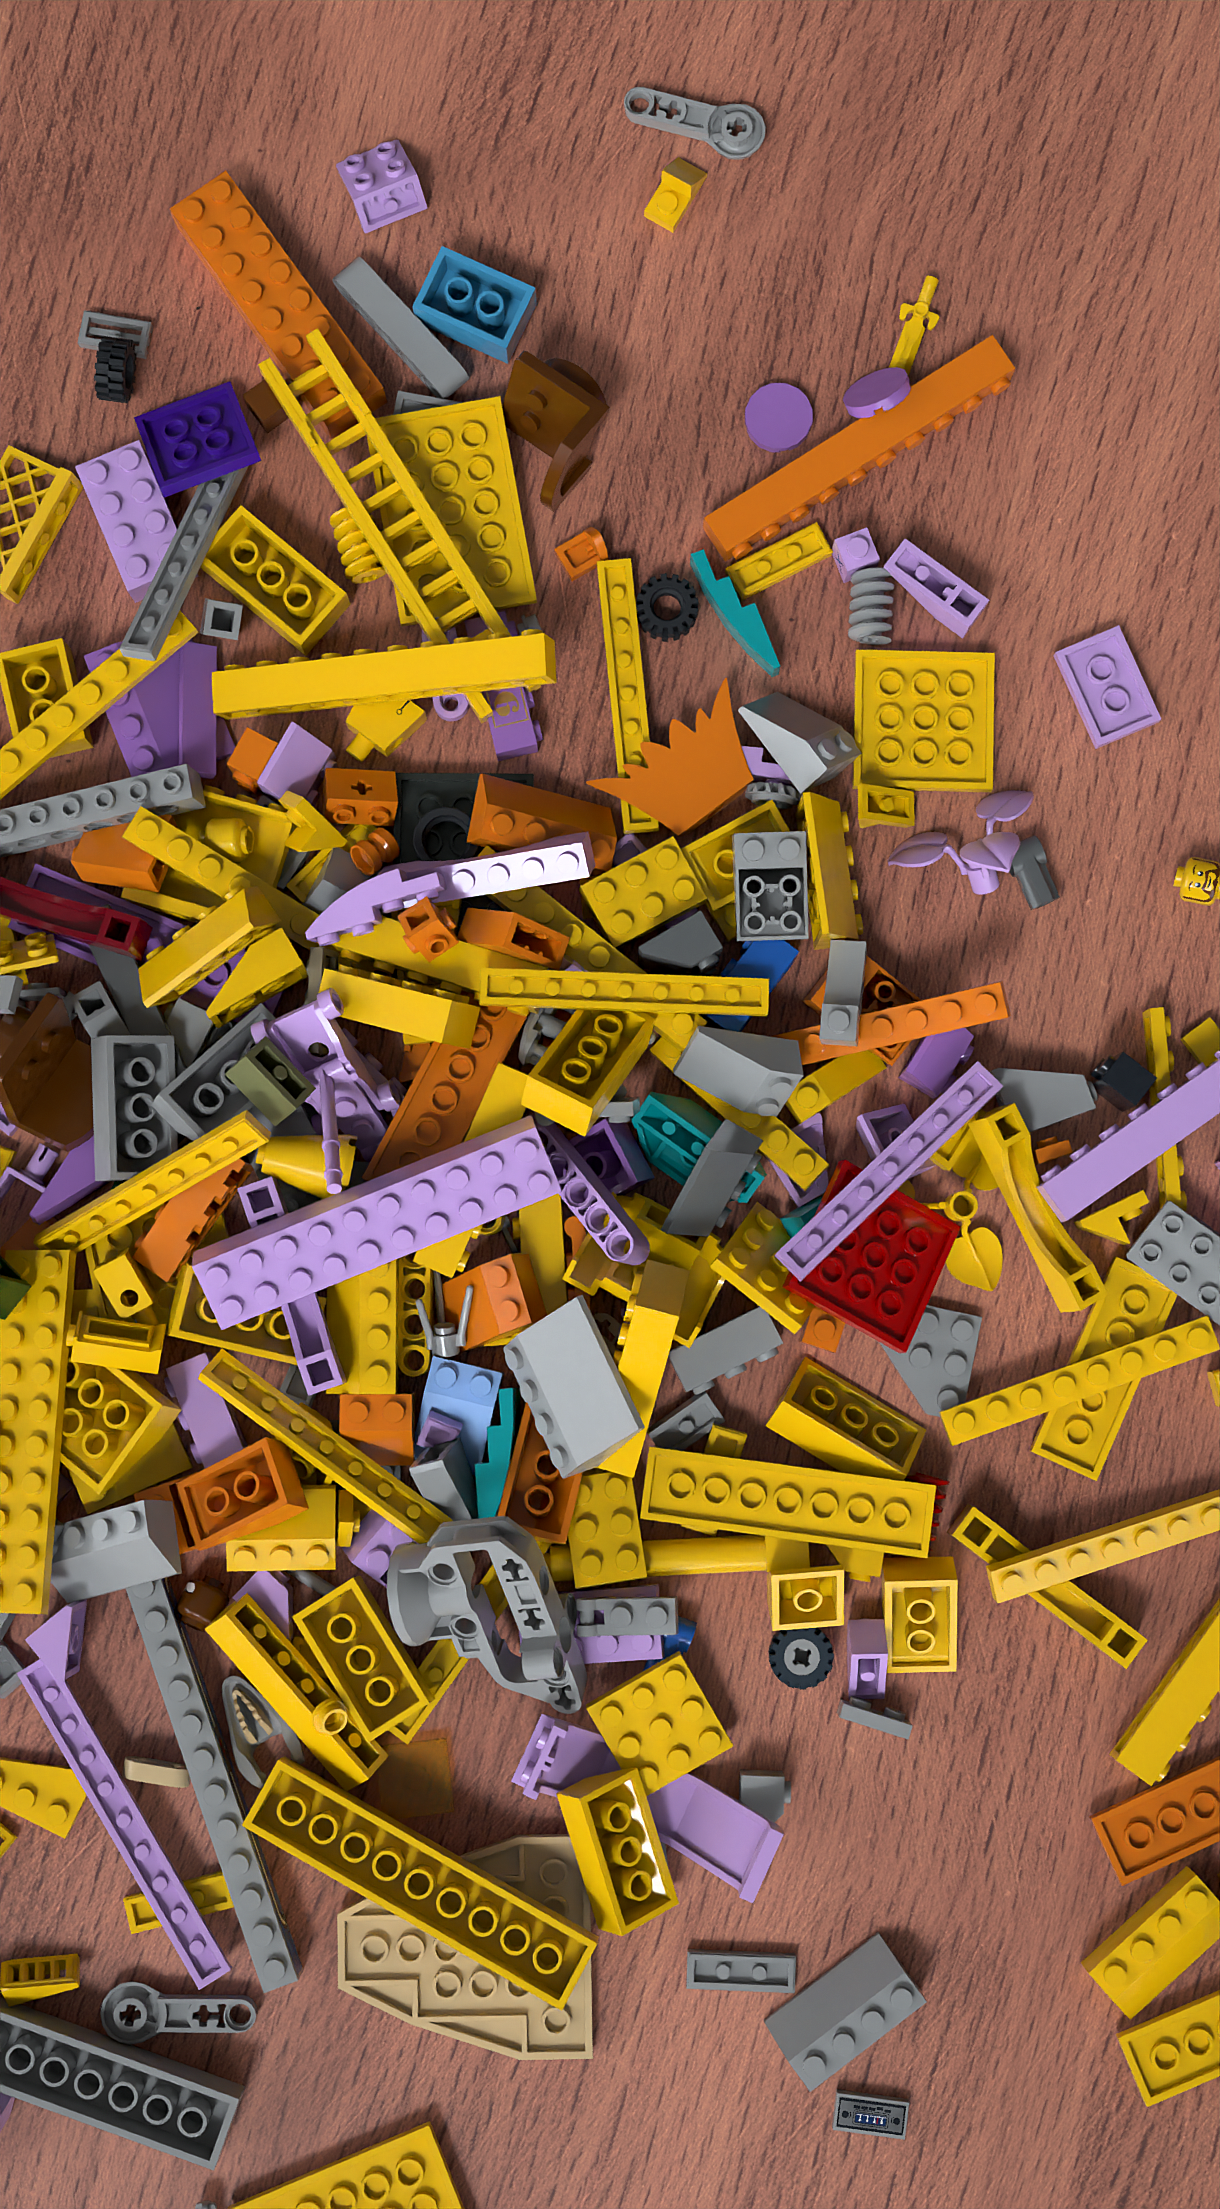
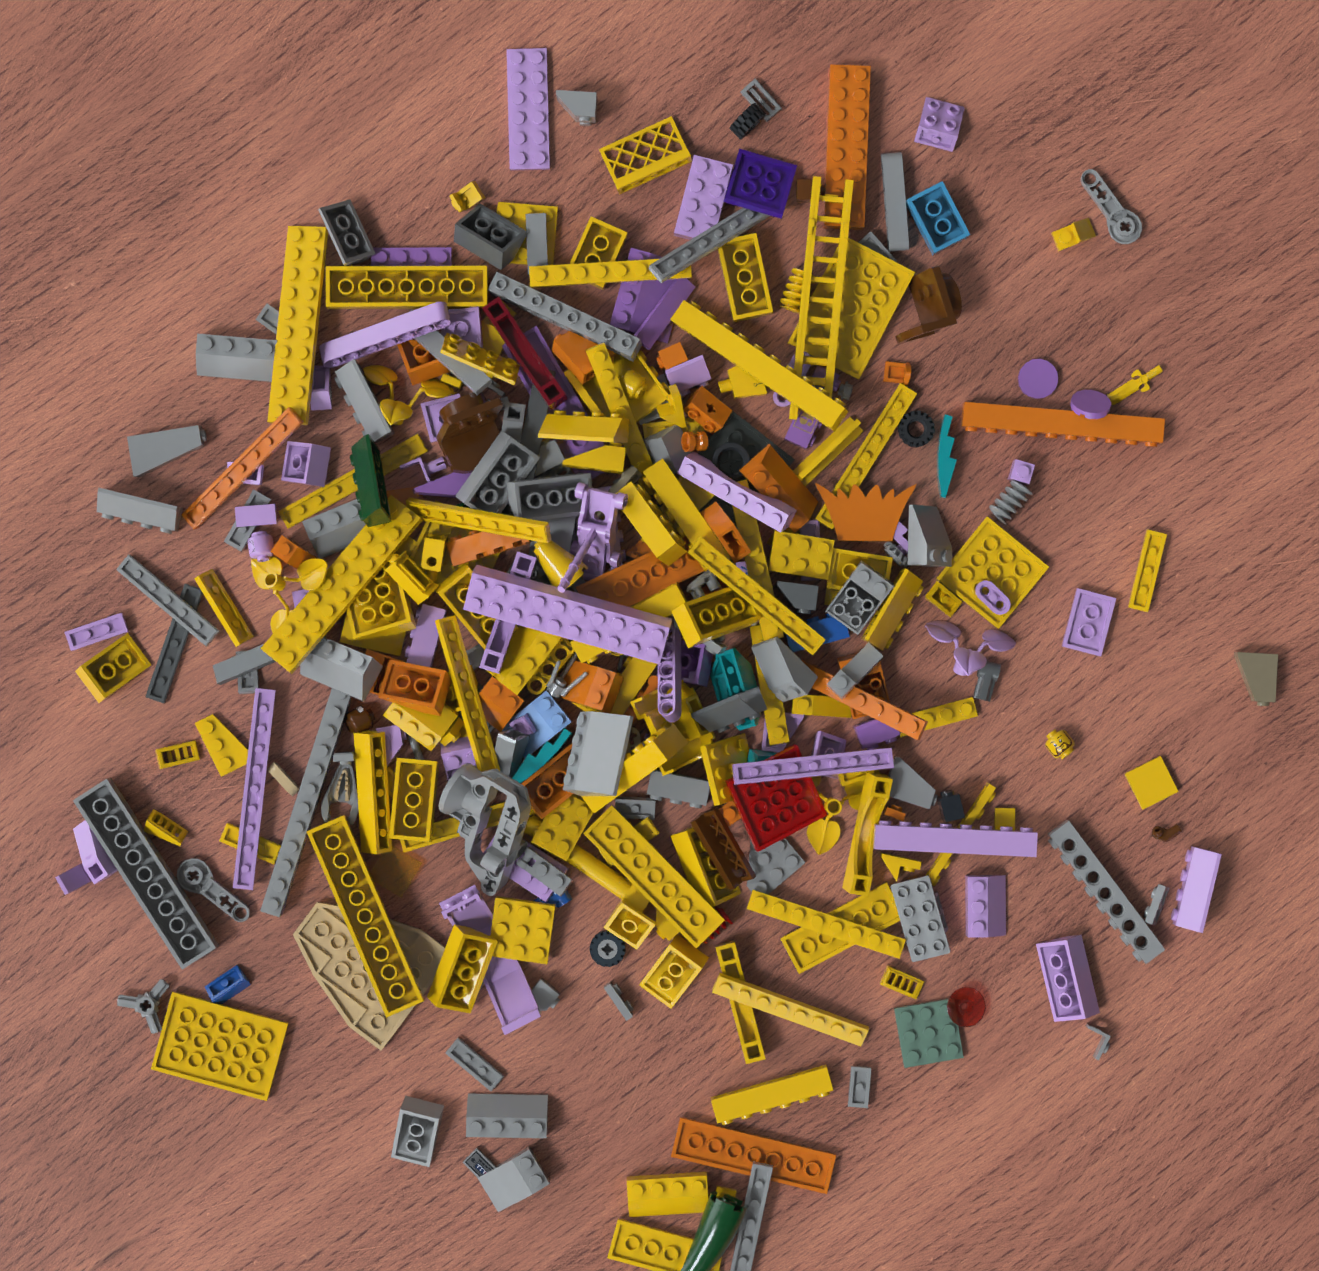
camera: 35 degrees right, 5 degrees up
(60, 1640) = (285, 687): lavender slope -> none
(217, 1675) = (344, 757): none -> light grey plate
(221, 619) = (707, 277): light grey brick -> none
(270, 1081) = (568, 514): olive brick -> none
(301, 2135) = (227, 985): none -> blue slope
(330, 1716) = (381, 814): yellow plate -> none
(359, 908) = (667, 467): lavender slope -> none
(428, 929) = (690, 500): orange brick -> none
(570, 724) = (828, 450): none -> yellow fence
(733, 2135) = (417, 1131): none -> light grey slope
(779, 561) = (984, 446): yellow tile -> none
(848, 1390) = (719, 848): none -> reddish brown fence
(866, 1658) = (635, 972): lavender slope -> none
(927, 2095) = (514, 1179): none -> light grey slope
(936, 588) = (1045, 516): lavender slope -> none
(951, 747) = (992, 597): none -> lavender plate
(1016, 957) = (947, 713): none -> yellow plate
(1130, 558) = (1147, 570): none -> yellow plate

